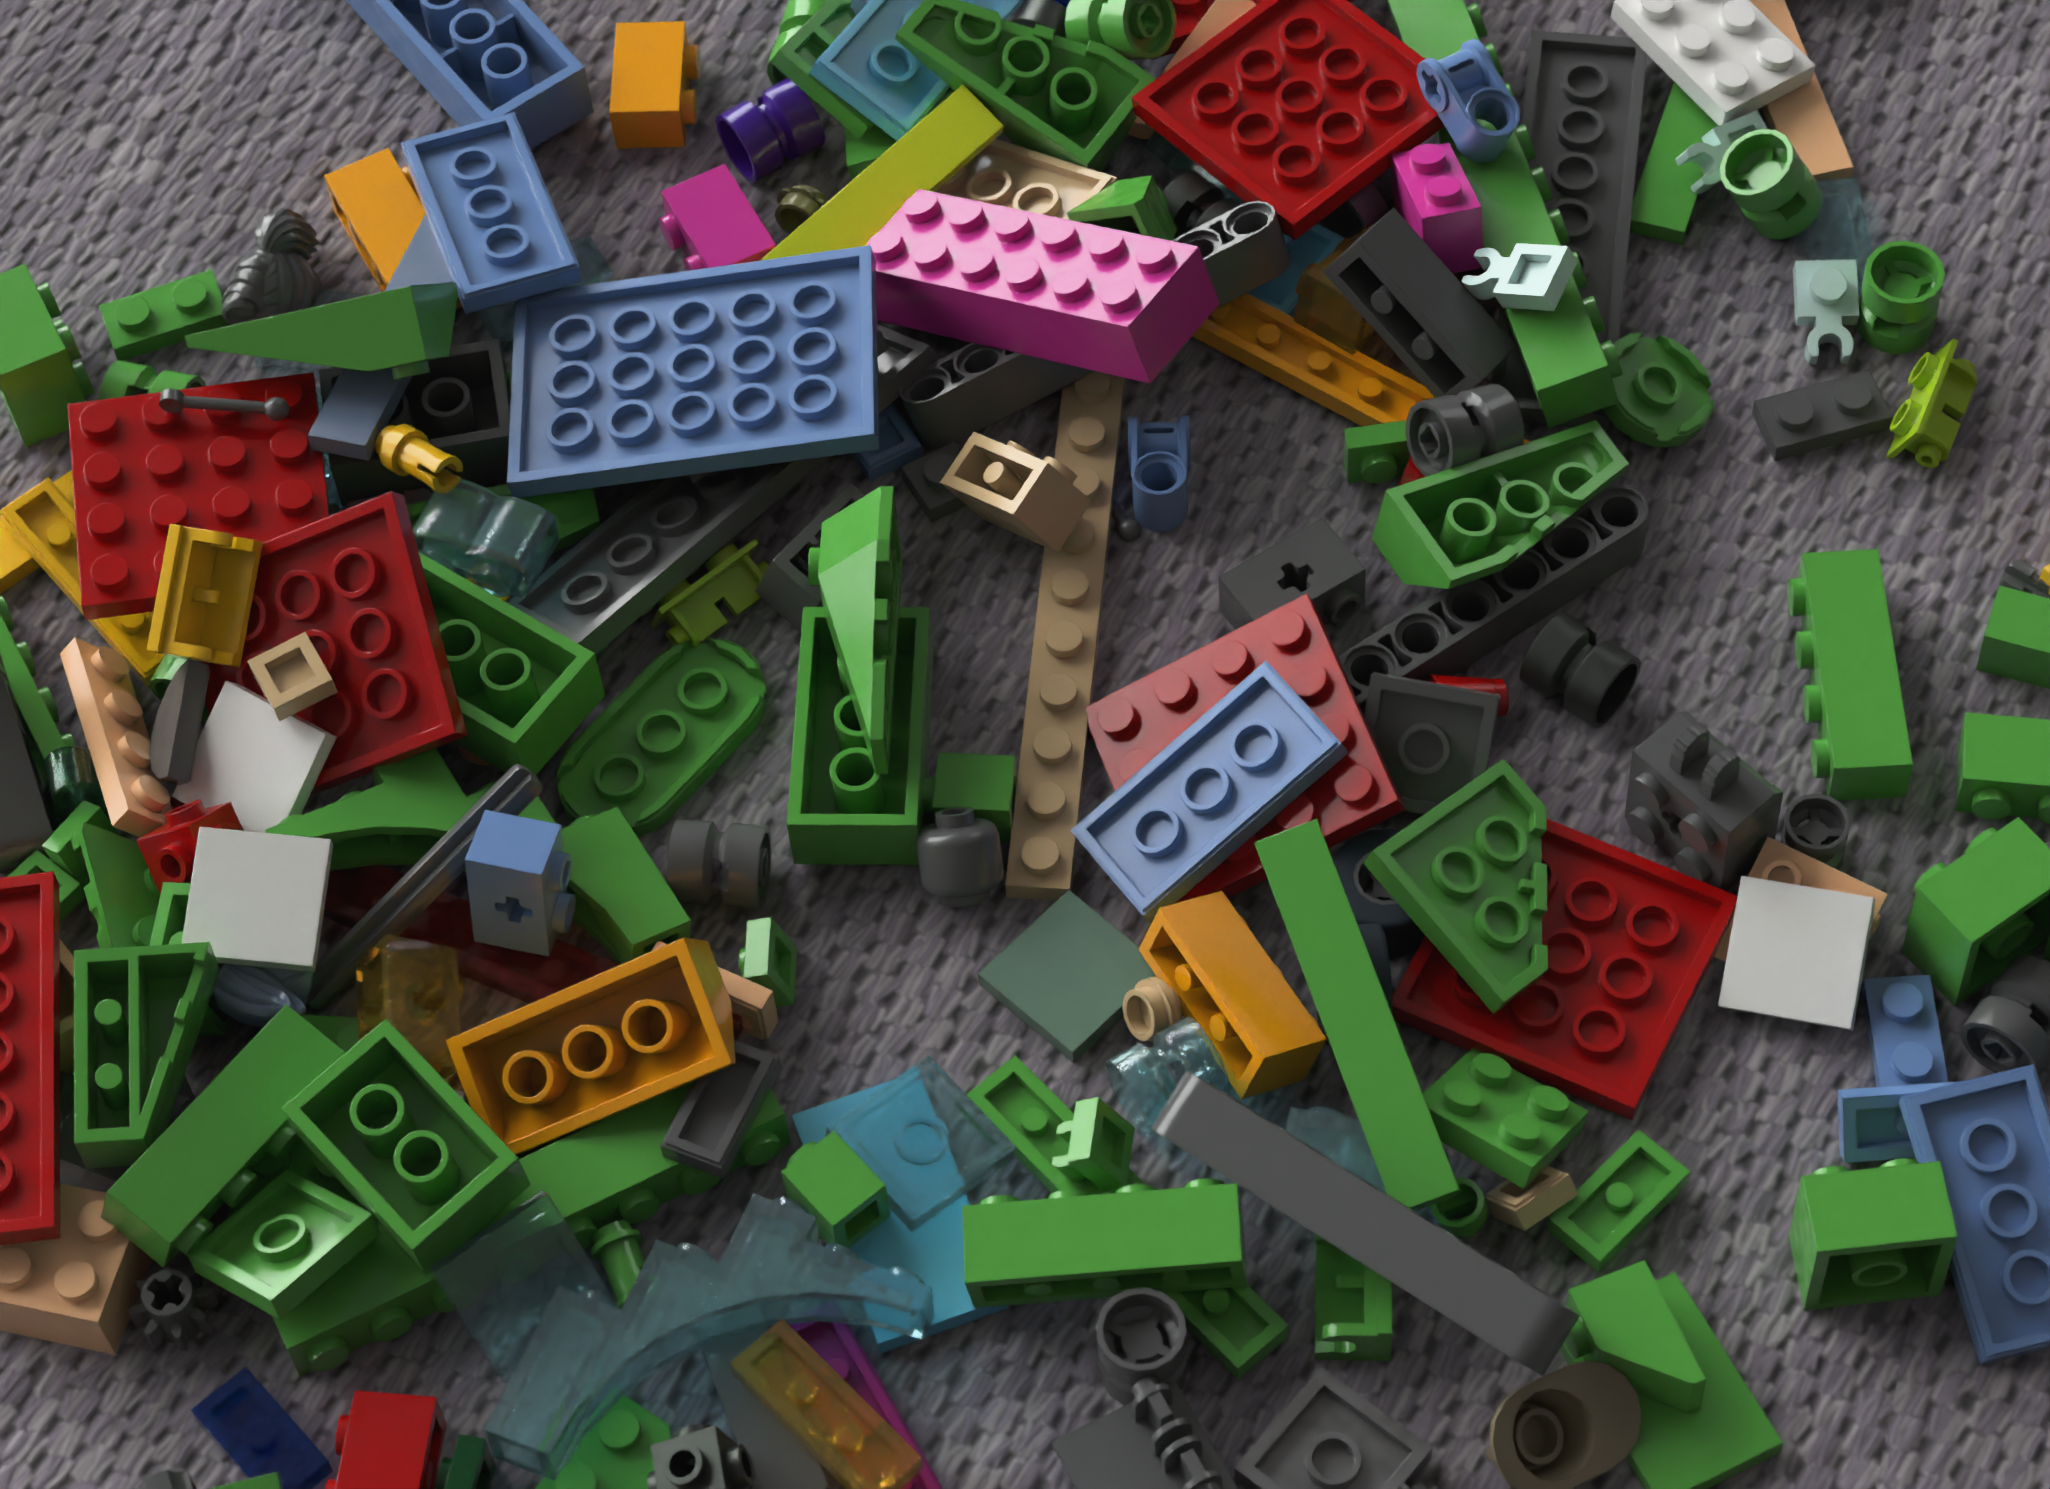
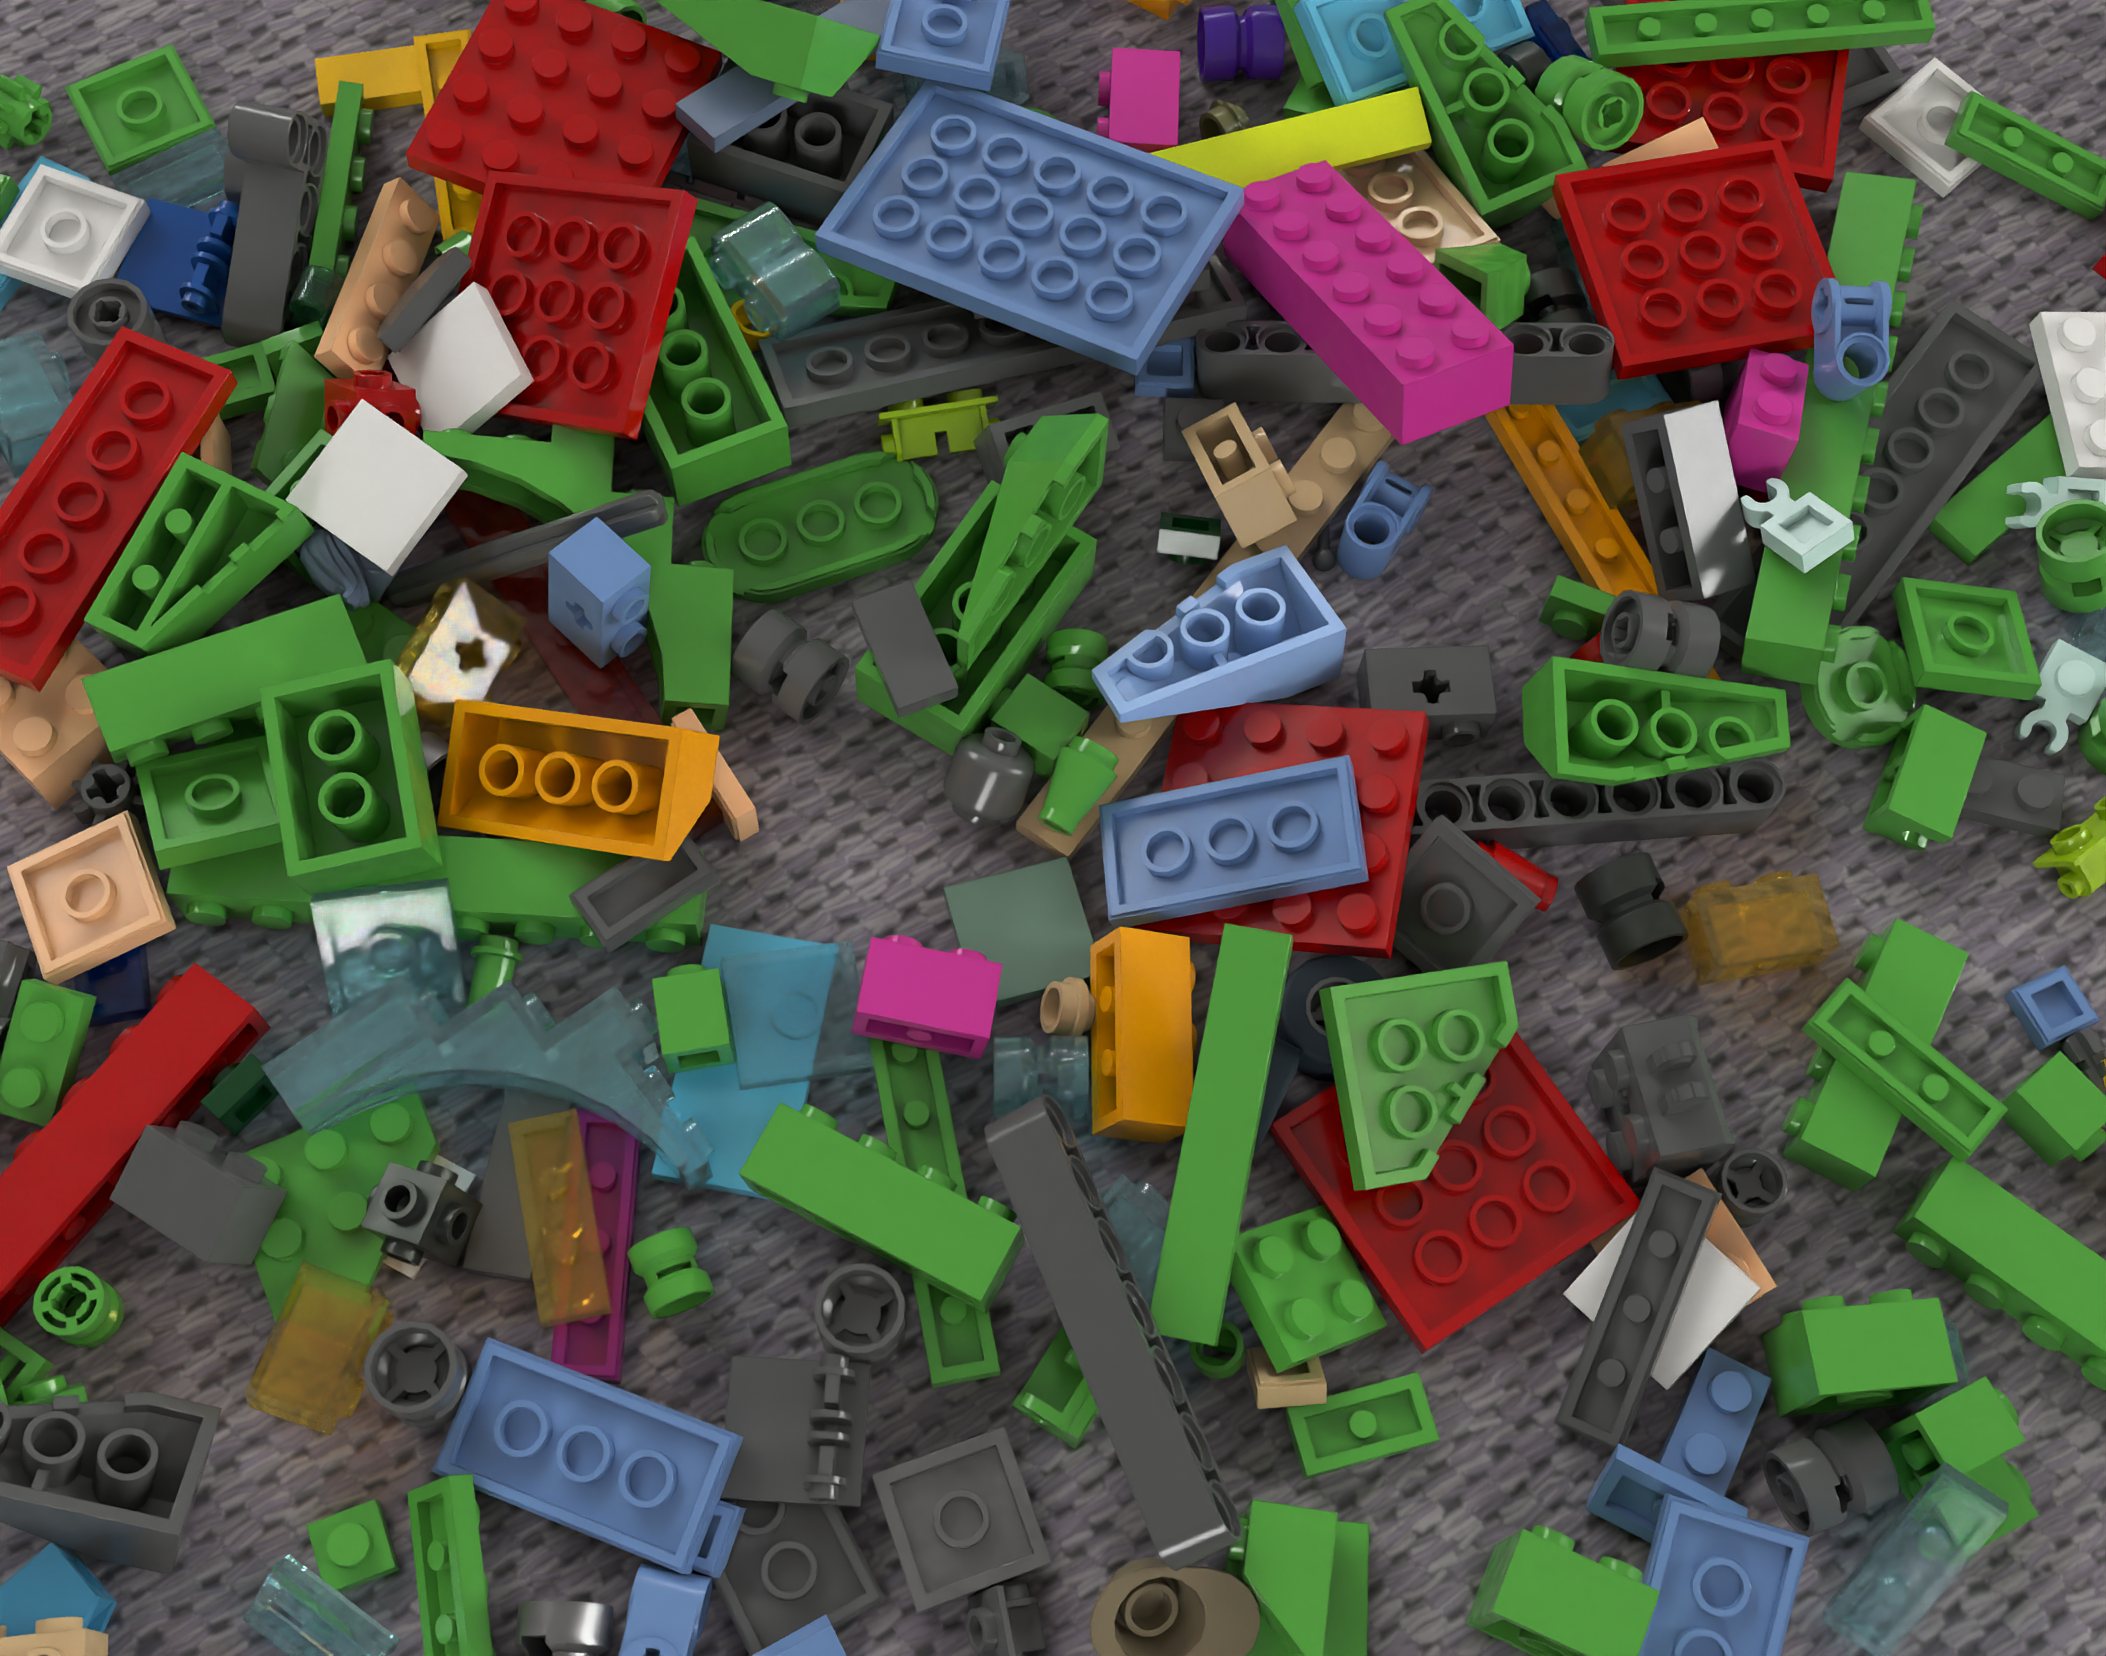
camera: 20 degrees right, 10 degrees up
(175, 400) = (664, 66): dark grey hinge -> none
(204, 595) = (494, 198): yellow hinge -> none
(217, 1393) = (91, 898): none -> light nougat tile
(292, 676) = (520, 308): tan plate -> none
(408, 452) = (752, 166): yellow animal -> none
(770, 959) = (776, 778): bright green plate -> none
(822, 782) = (904, 648): none -> dark grey tile
(951, 1410) = (670, 1272): none -> bright green wheel
(971, 724) = (1072, 658): none -> bright green wheel
(1001, 571) = (1188, 538): none -> plate
(1029, 1059) = (927, 996): none -> dark pink brick
(1043, 816) = (1077, 783): none -> bright green cone
(1098, 1145) = (935, 1111): bright green tile -> none
(1108, 625) = (1240, 642): none -> light blue wedge
(1694, 627) = (1757, 927): none -> clear yellow brick
(1718, 302) = (1966, 639): none -> bright green plate
(1755, 434) = (1925, 779): none -> bright green hinge
(1786, 974) = (1638, 1309): none -> dark grey tile
(1883, 666) = (1904, 1070): none -> bright green tile
(1973, 562) = (2051, 1008): none -> medium blue tile

